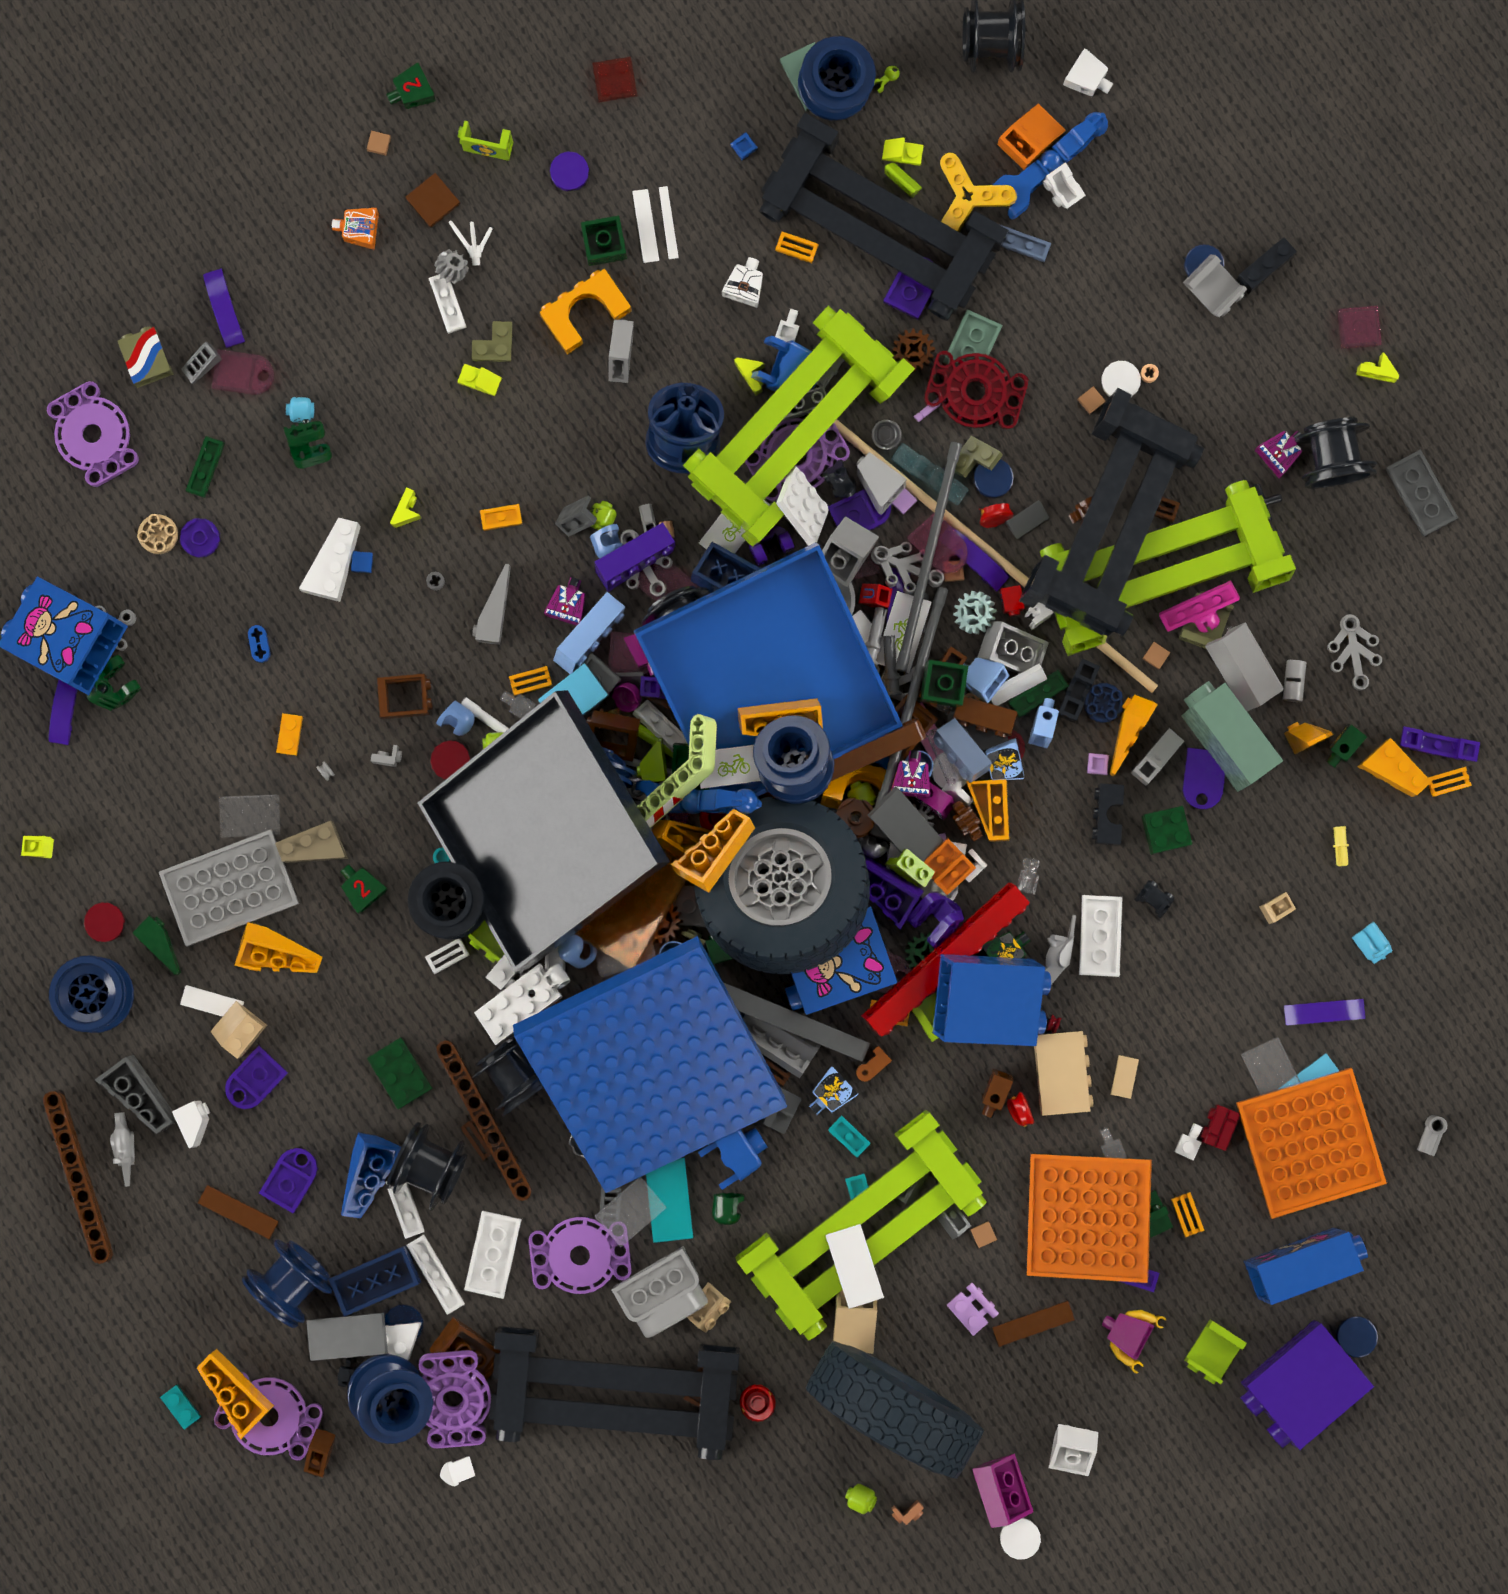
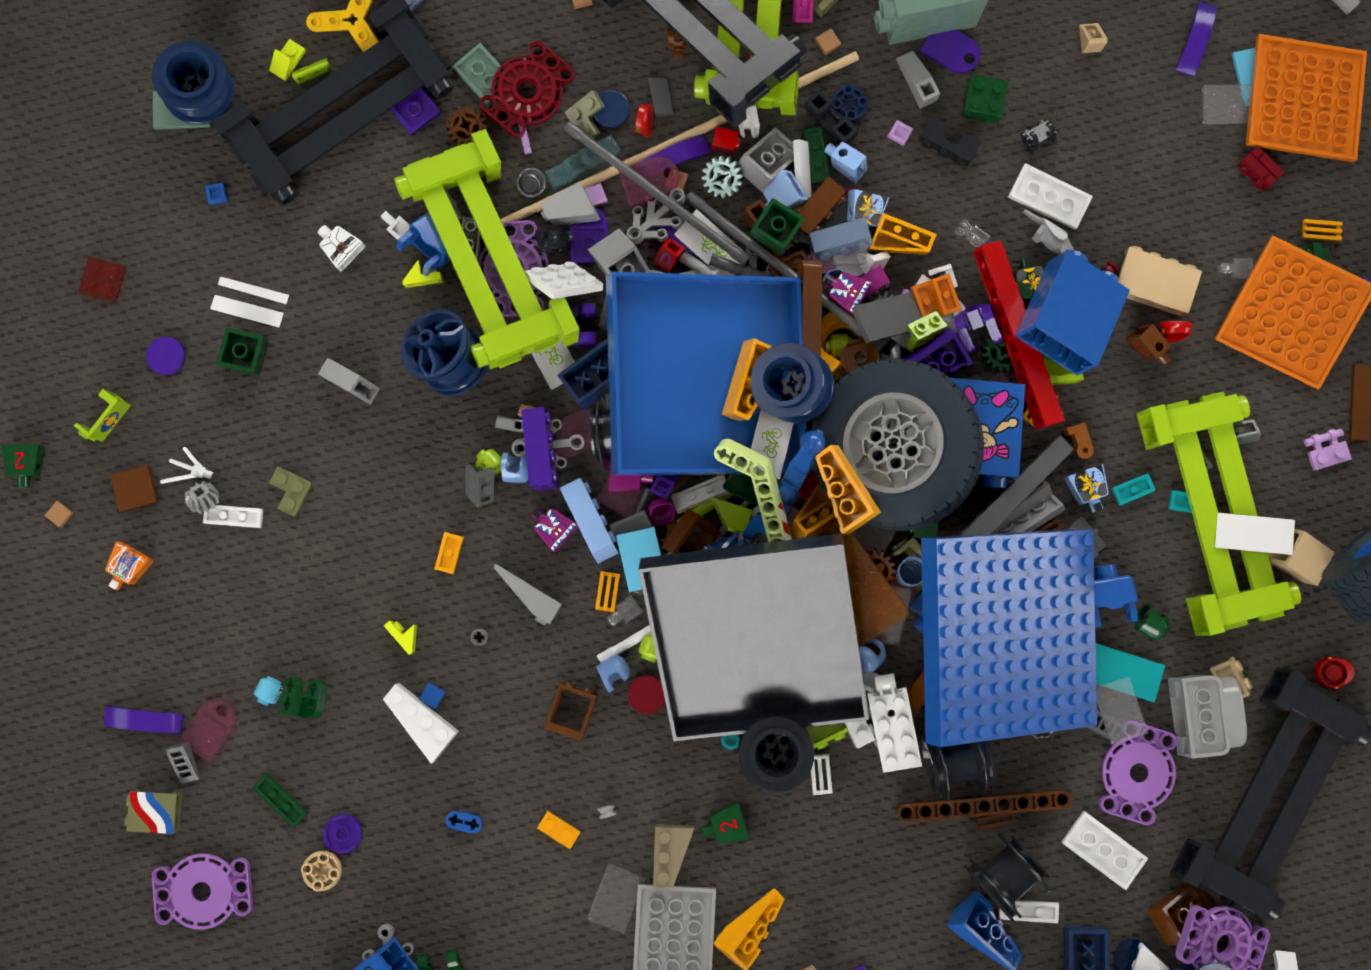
camera: 65 degrees left, 0 degrees up
(383, 758) = (618, 754): light grey bracket -> none
(399, 1073) = (907, 863): dark green plate -> none
(435, 1274) = (1100, 909): white tile -> none
(479, 379) = (316, 518): neon yellow slope -> none
(598, 287) = (282, 375): light orange arch -> none
(794, 254) = (323, 182): light orange tile -> none
(889, 75) = (214, 40): lime arm -> none
(966, 820) = (903, 263): reddish brown gear -> none
(983, 1234) = (1266, 411): medium nougat tile -> none
(1124, 1077) = (1181, 230): tan tile -> none
(1133, 719) = (875, 82): light orange wedge -> none
(1188, 1145) = (1262, 202): white plate -> none

